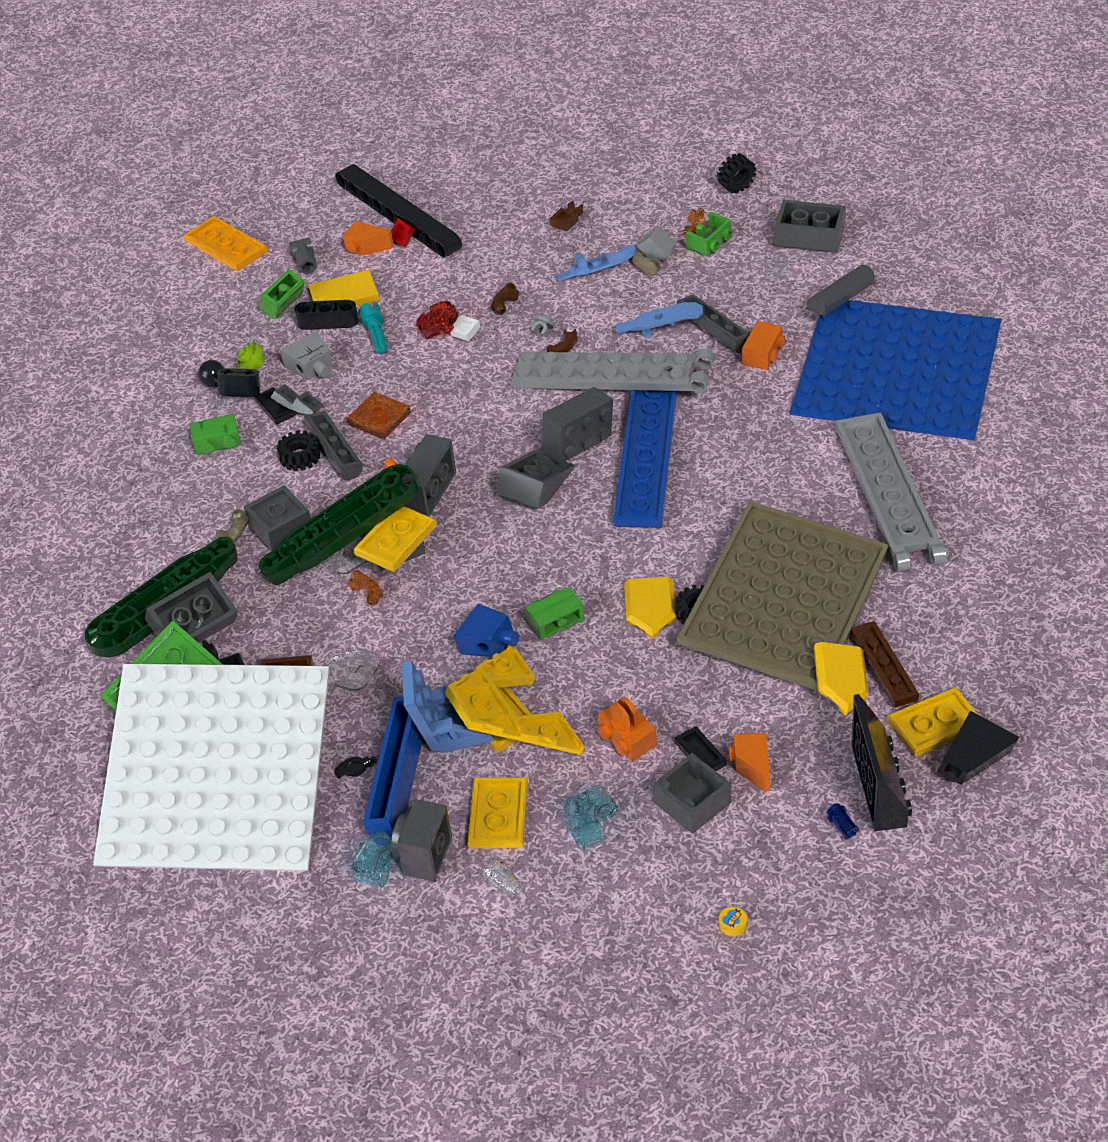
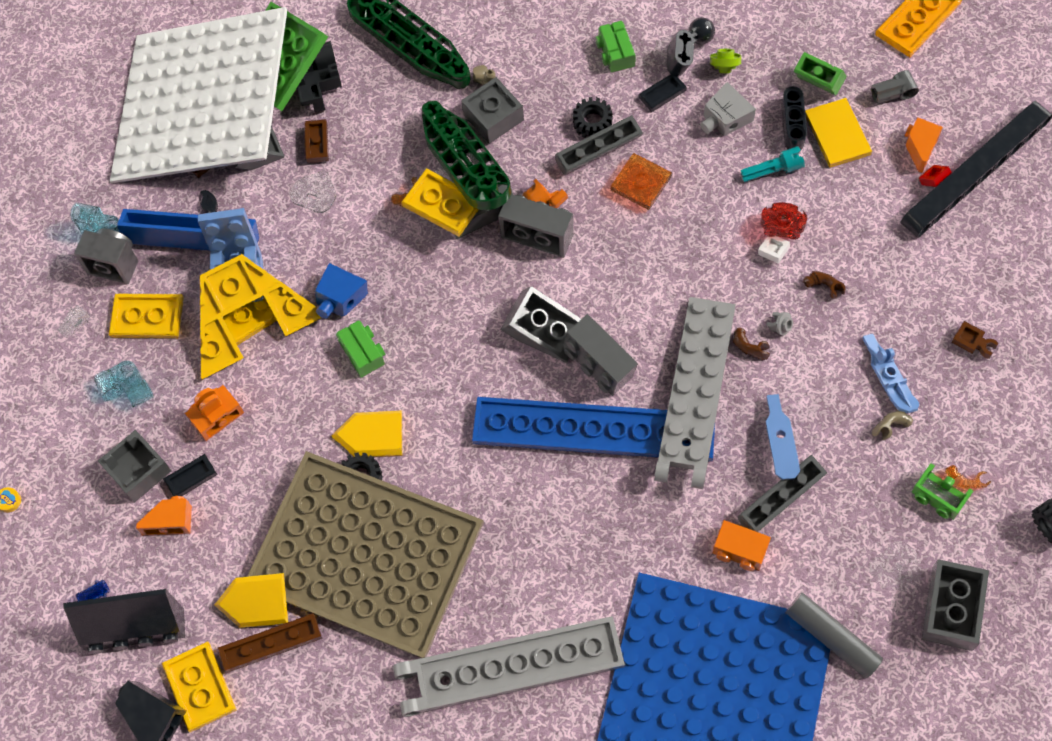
camera: 90 degrees right, 20 degrees up
(197, 608) = (372, 57): dark grey brick -> none
(301, 403) = (662, 108): flat silver slope -> none
(656, 244) = (912, 433): light grey brick -> none

